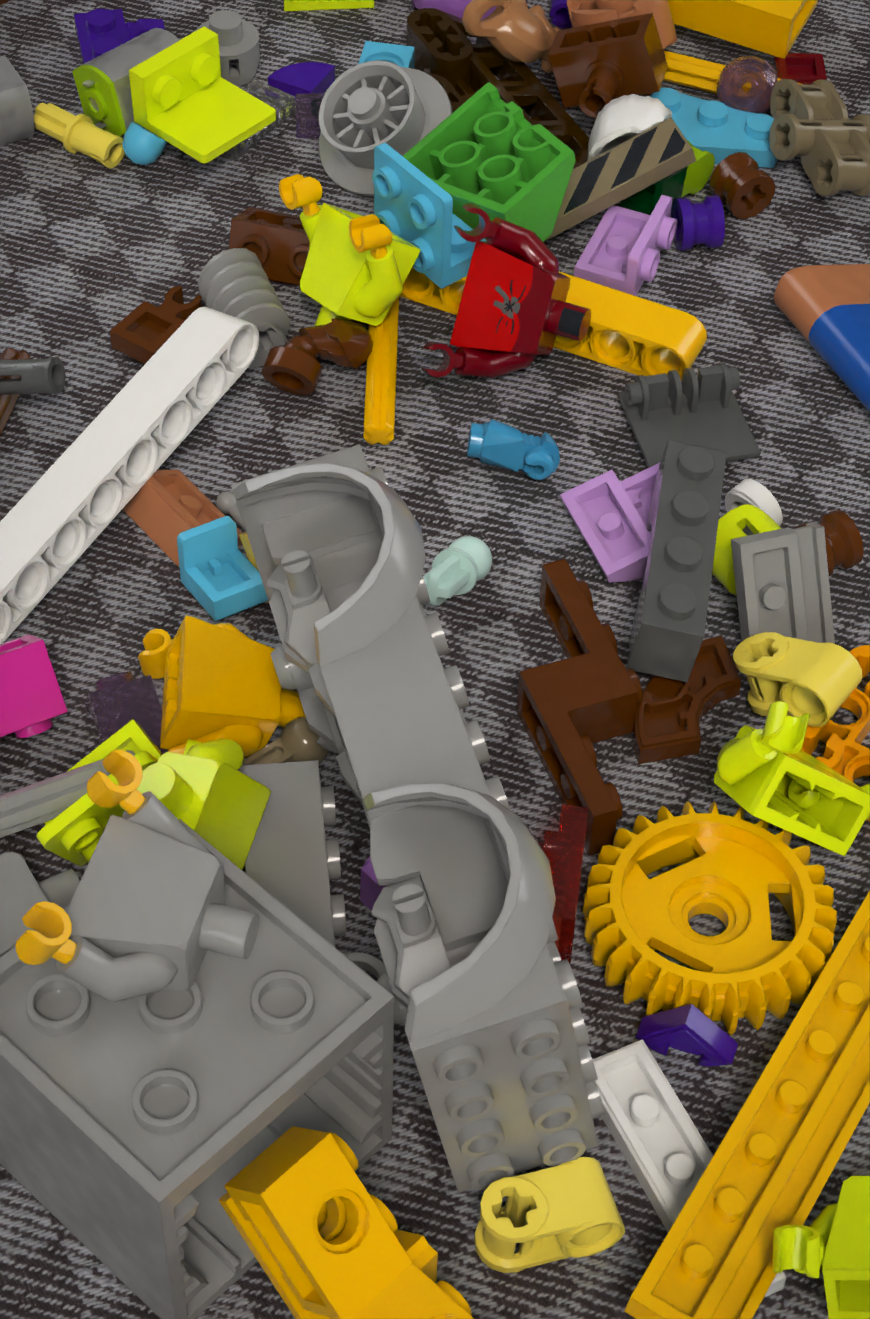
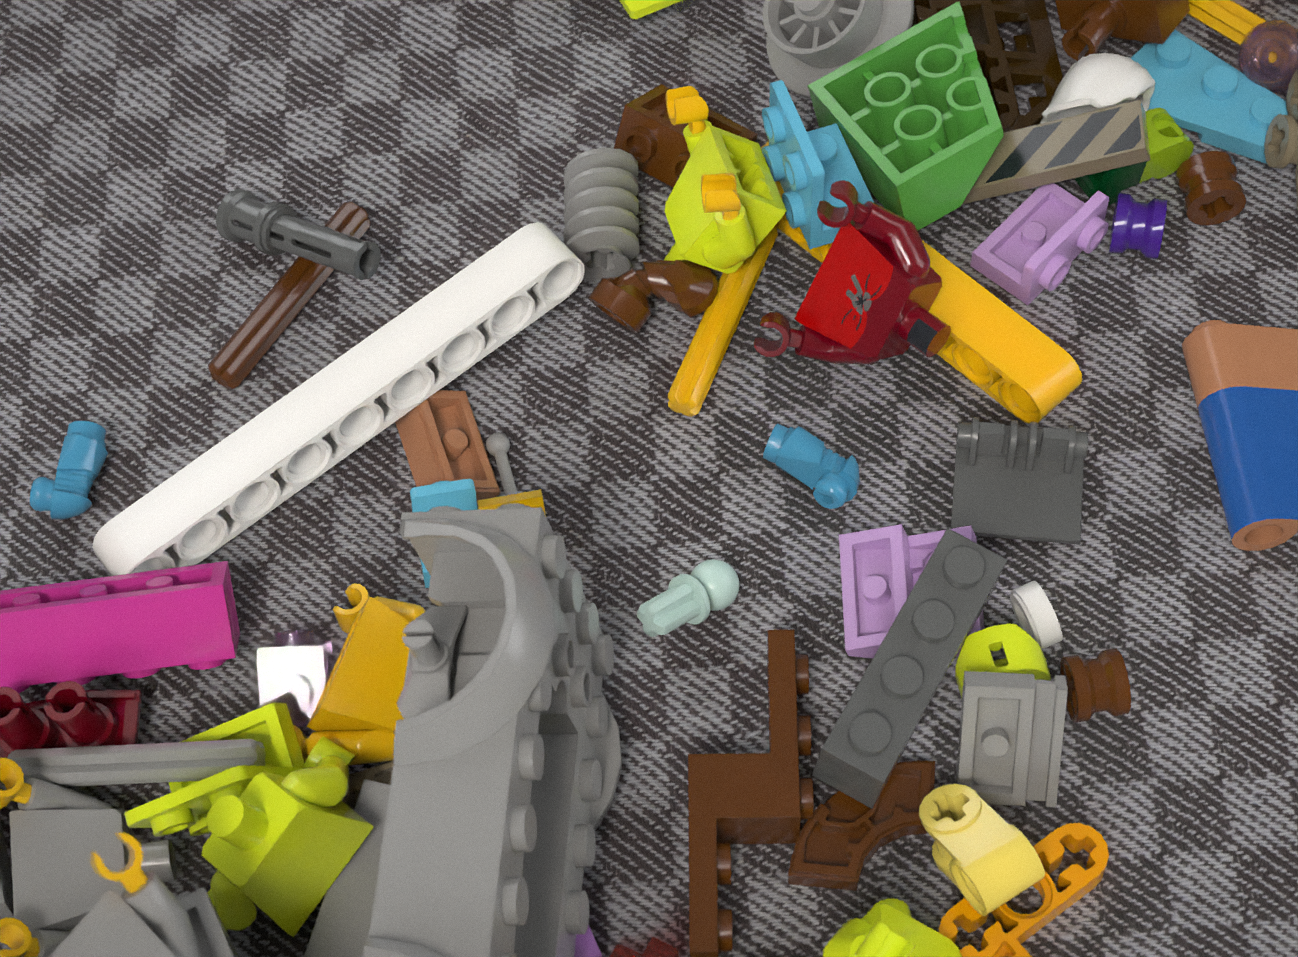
camera: 25 degrees right, 10 degrees up
(151, 326) = (501, 211): reddish brown plate -> none

